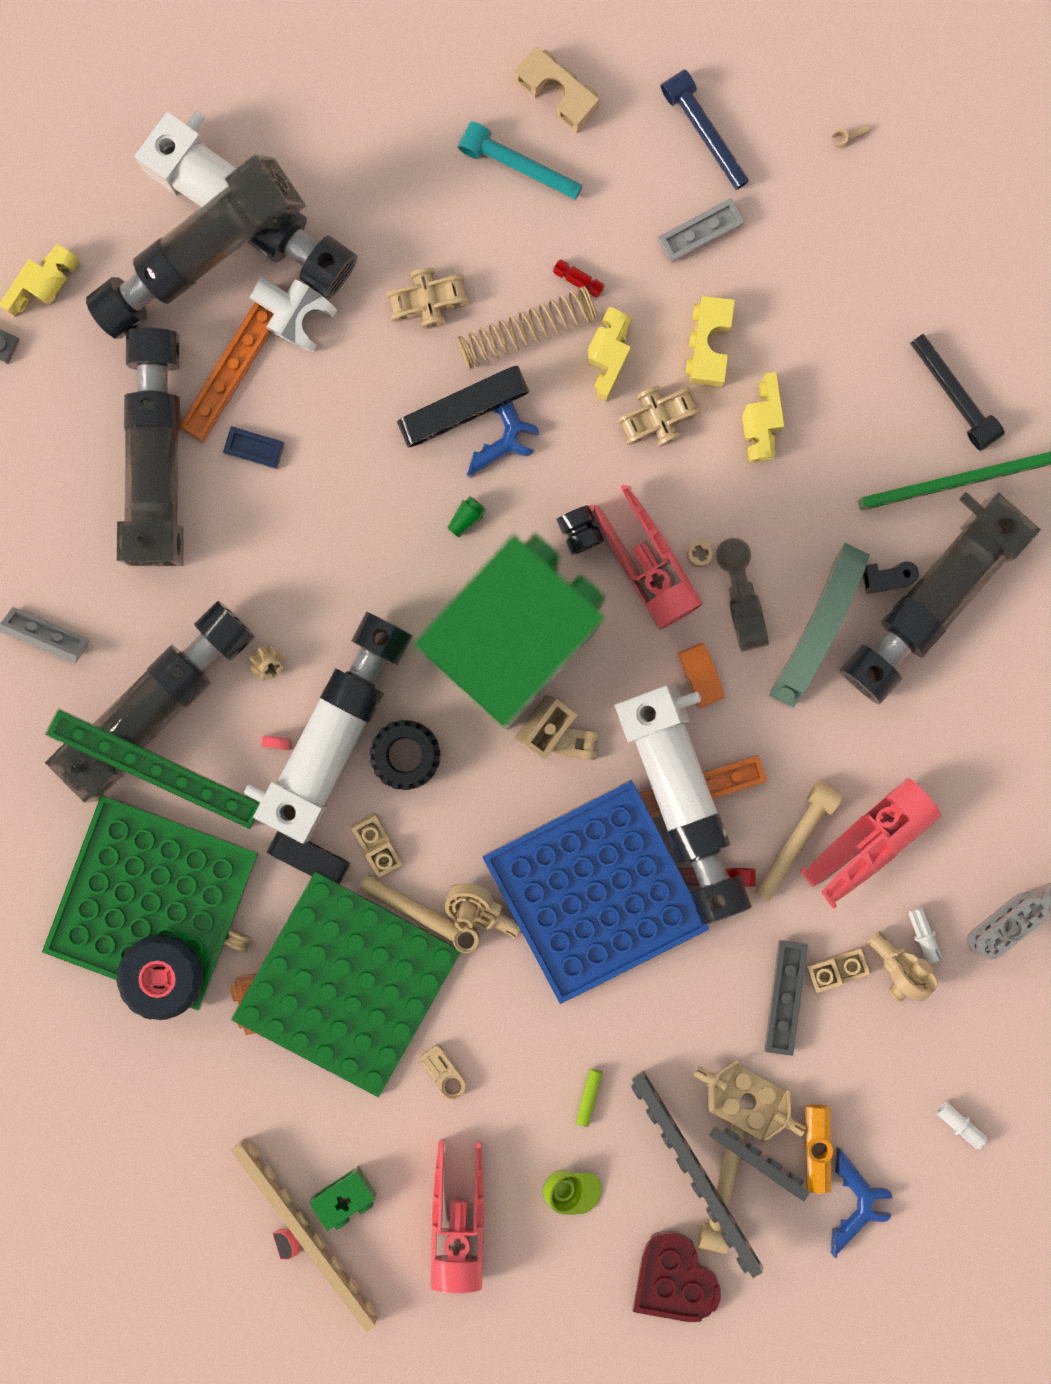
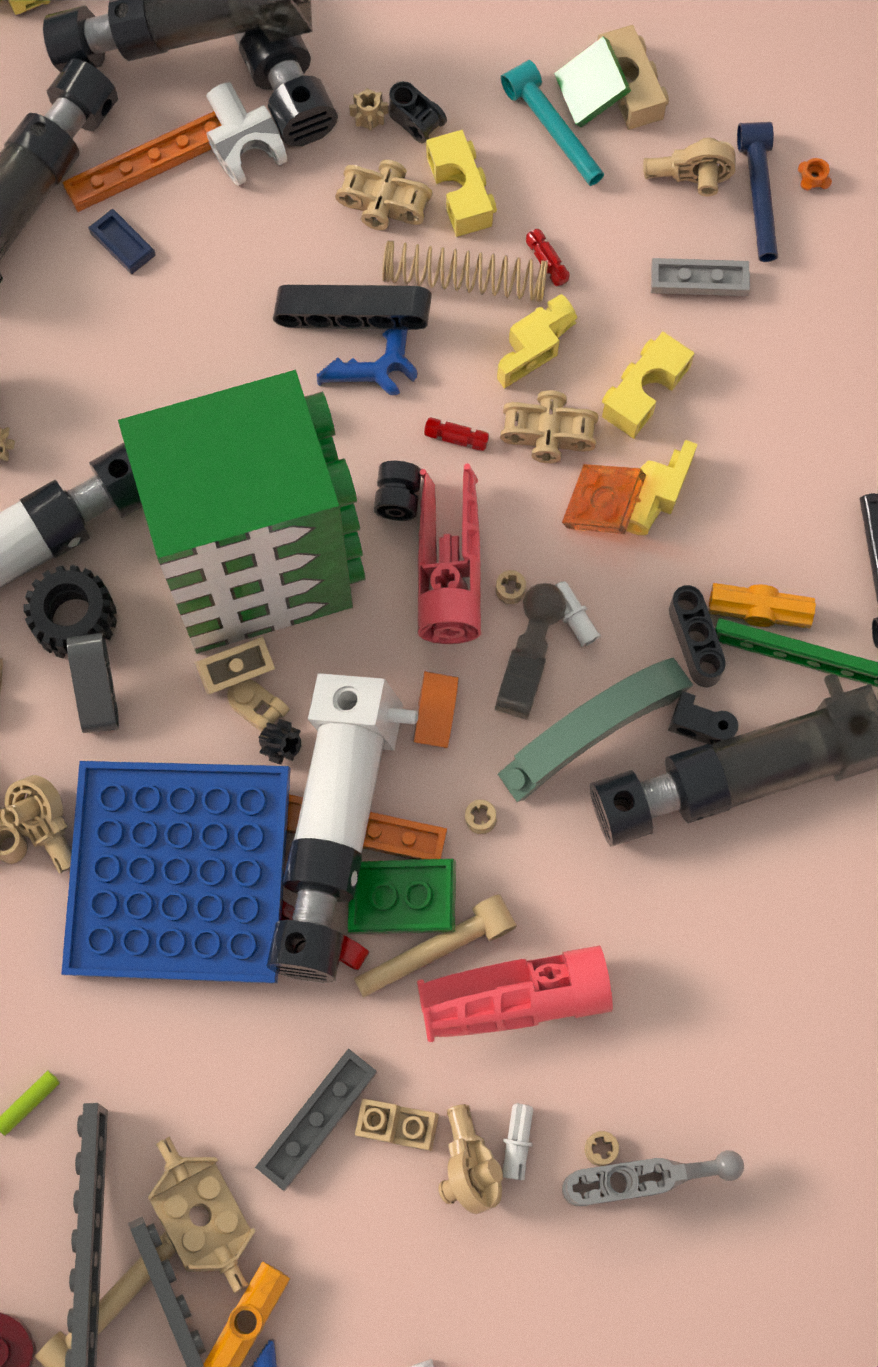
camera: 30 degrees right, 15 degrees down
(379, 237) = (368, 109): none -> tan gear
(412, 215) = (419, 115): none -> black piece
(456, 797) = (92, 682): none -> dark grey beam
(463, 238) = (453, 160): none -> light yellow arch
(531, 112) = (592, 82): none -> tile
(593, 459) = (456, 434): none -> red axle
(608, 761) = (280, 741): none -> black gear
(650, 133) = (696, 164): none -> tan pin
(730, 451) = (604, 498): none -> clear orange plate
(744, 87) = (818, 167): none -> orange plate
(759, 818) = (404, 897): none -> green tile
(760, 550) = (577, 617): none -> white axle
(780, 725) = (470, 818): none -> tan bush
(865, 518) = (697, 620): none -> black beam
(884, 466) = (761, 605): none -> light orange piece
(980, 915) = (606, 1138): none -> tan bush

